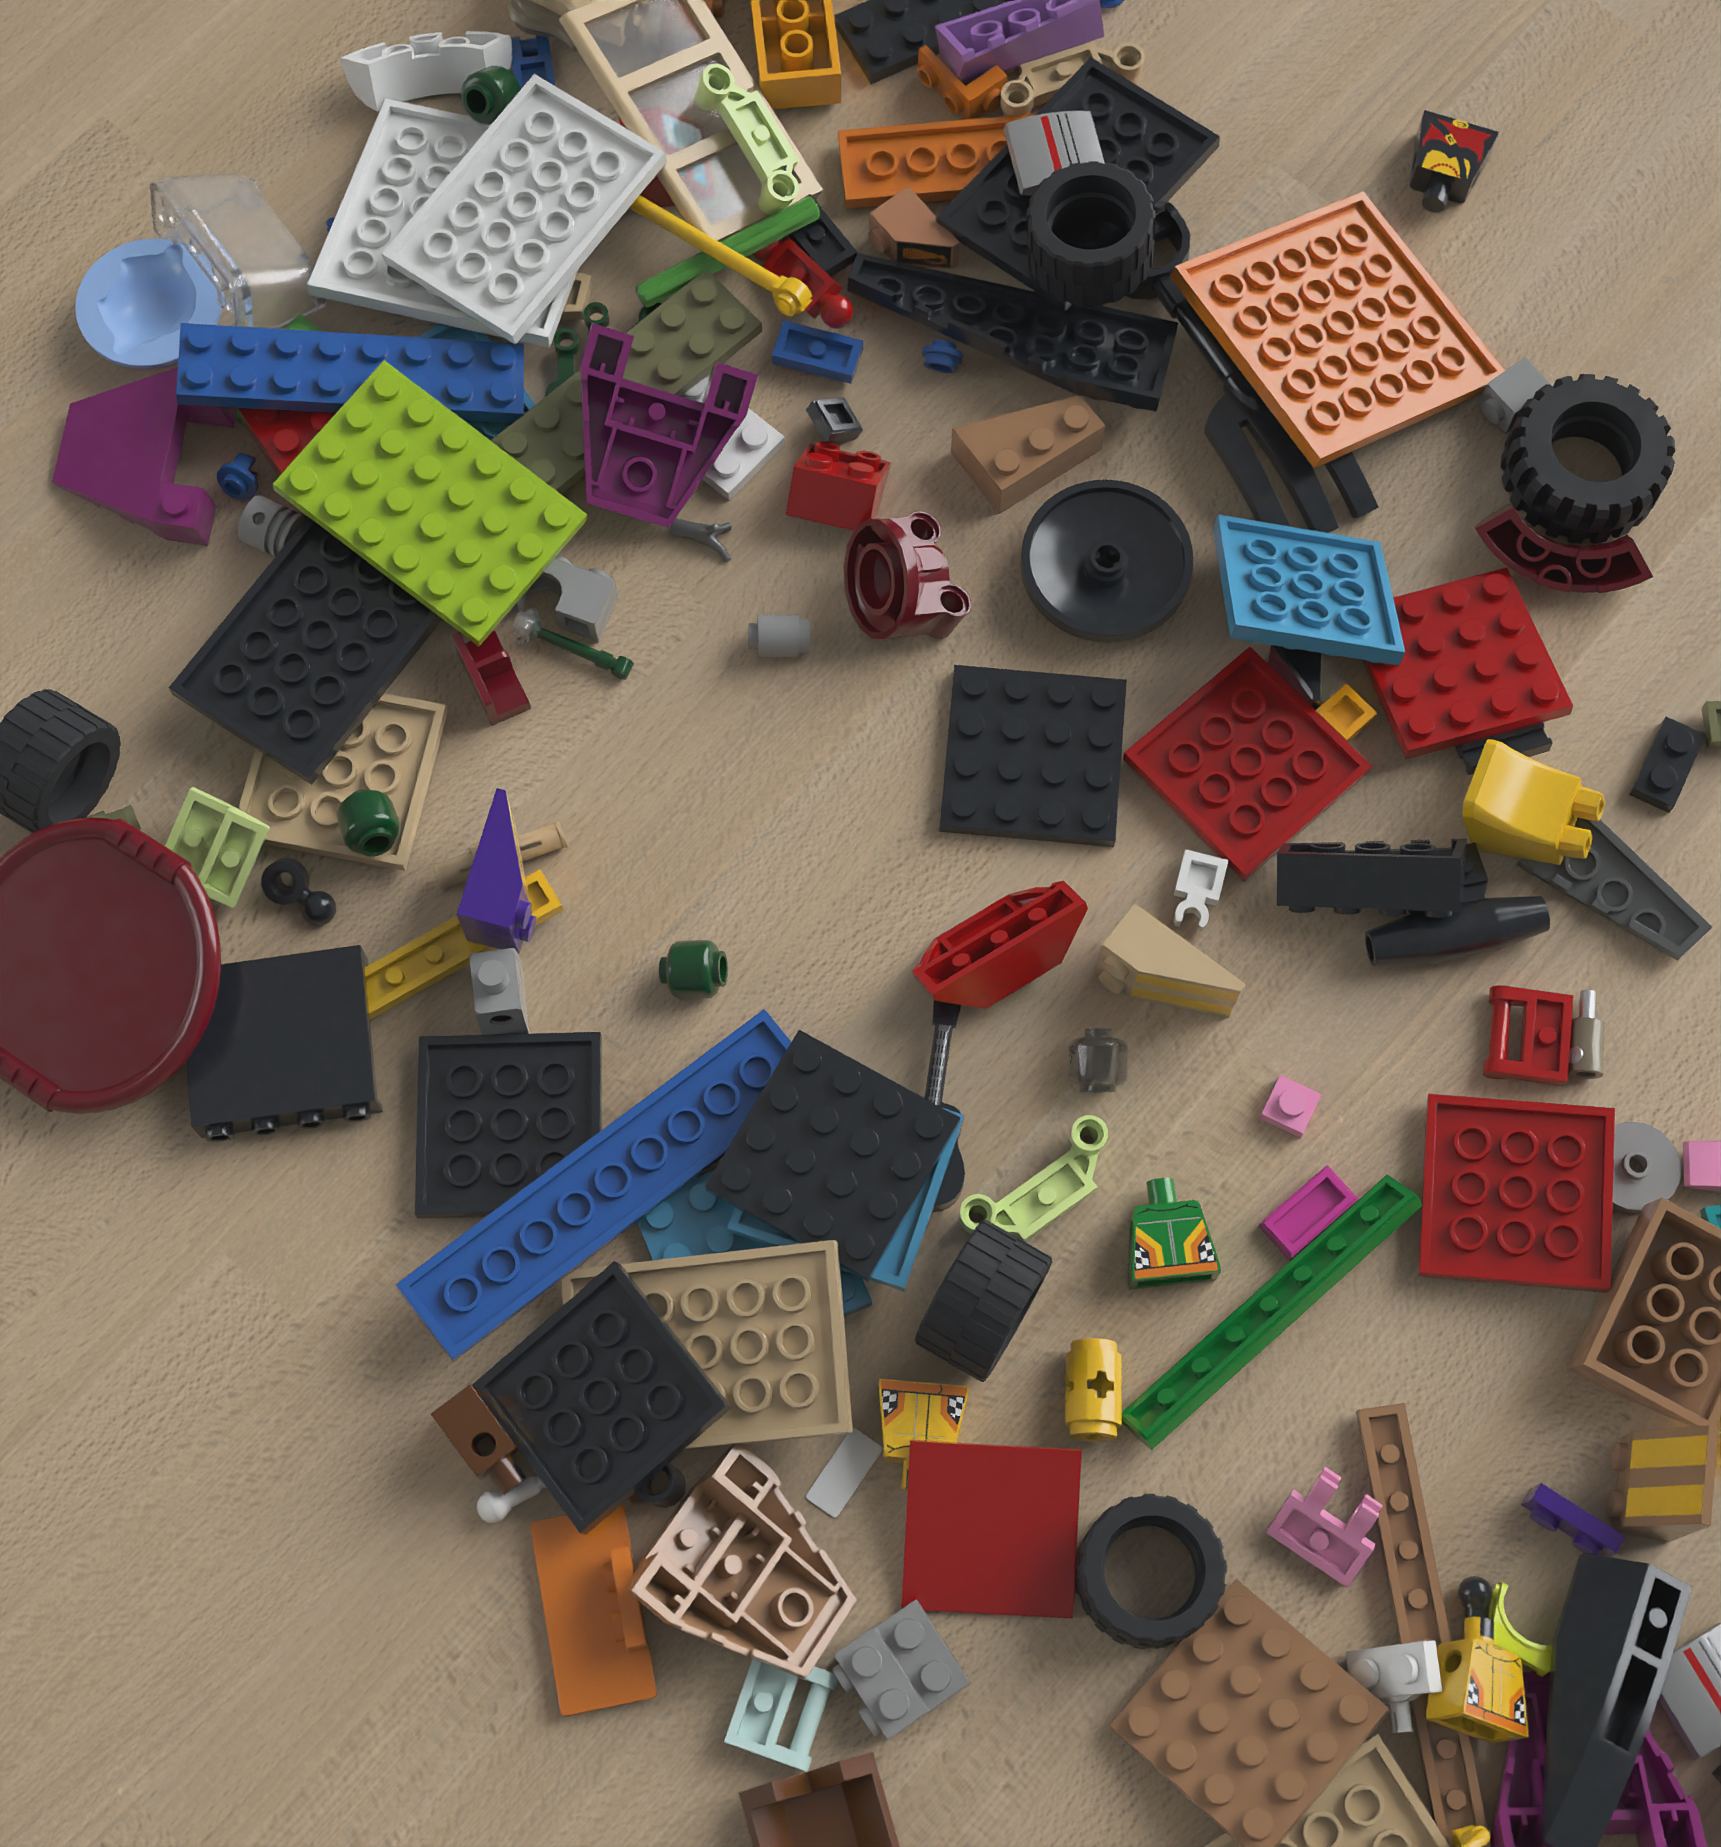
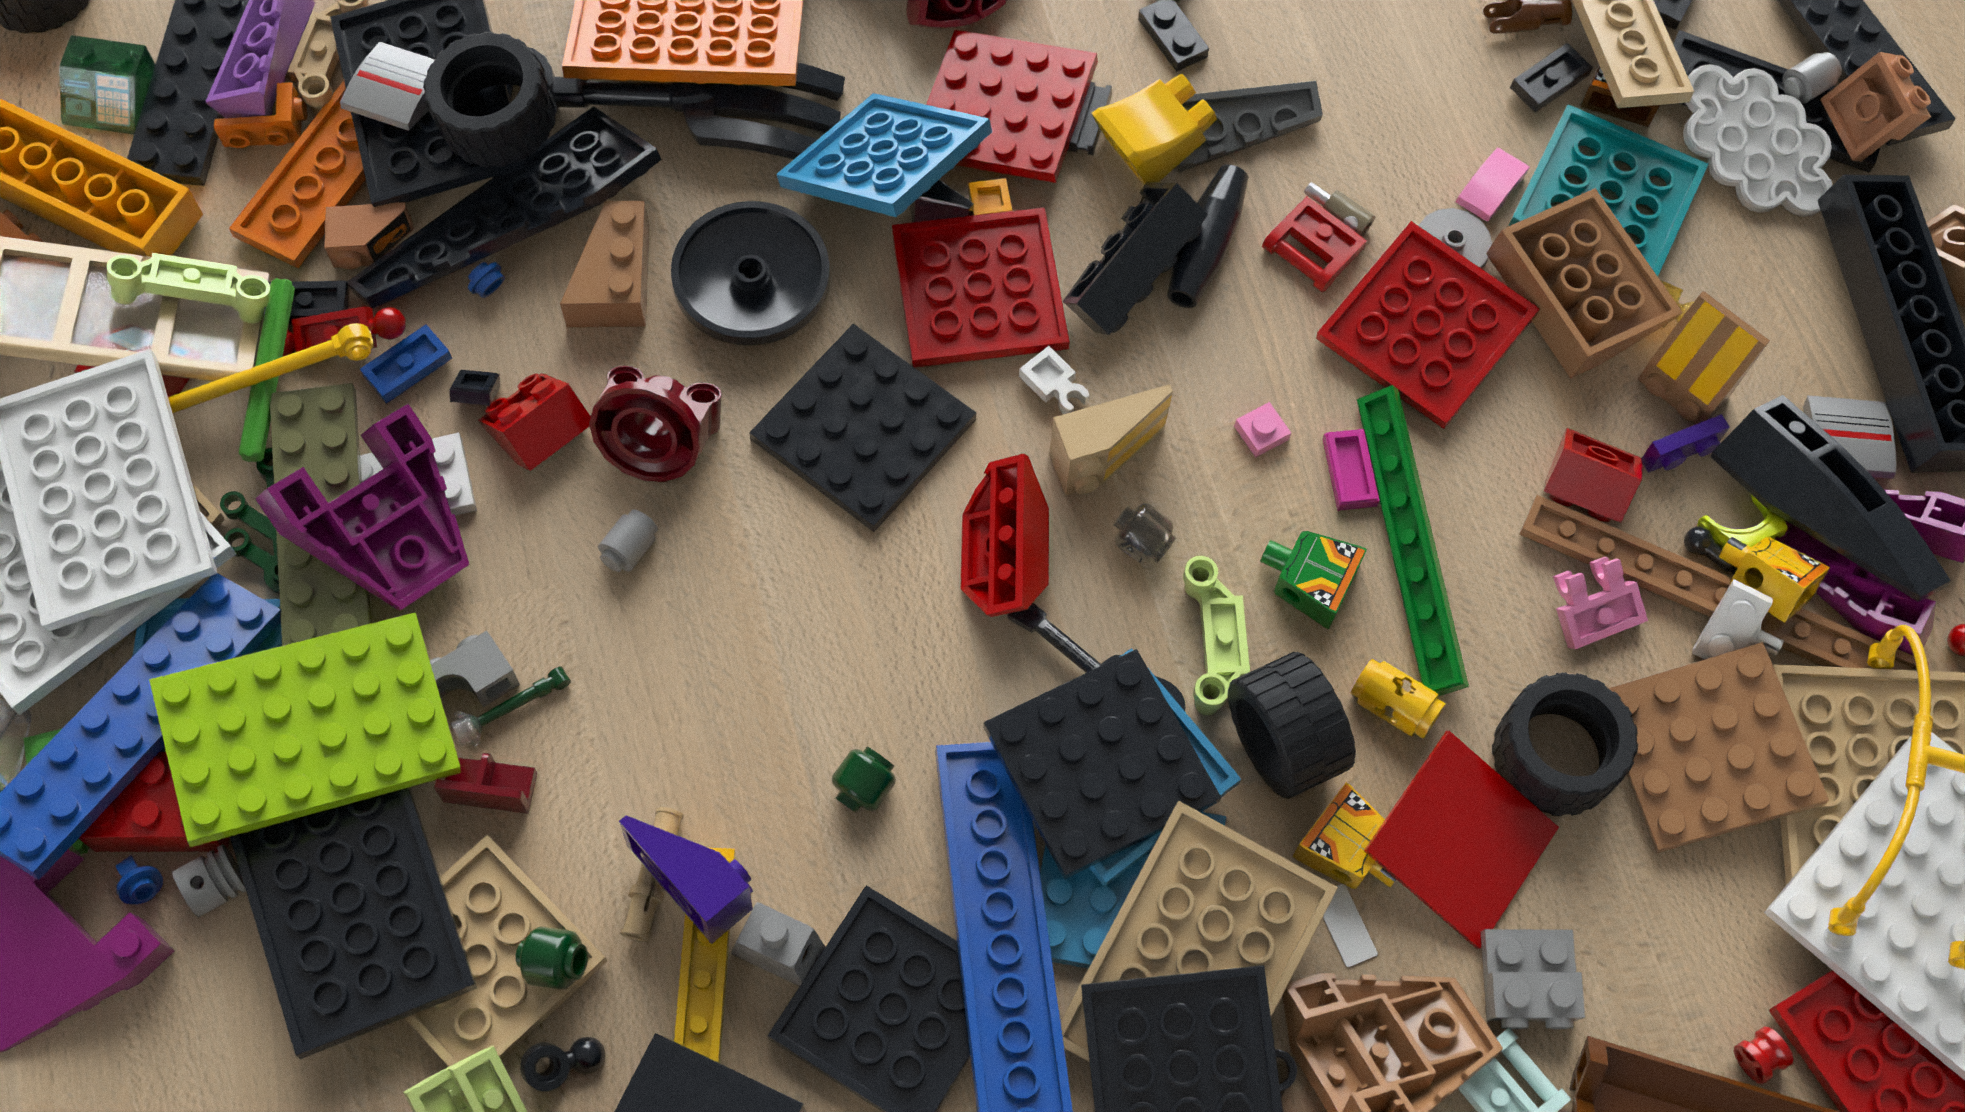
camera: 60 degrees left, 5 degrees down
(704, 533) = (493, 543): dark grey bar -> none
(1470, 1447) = (1593, 476): none -> red slope

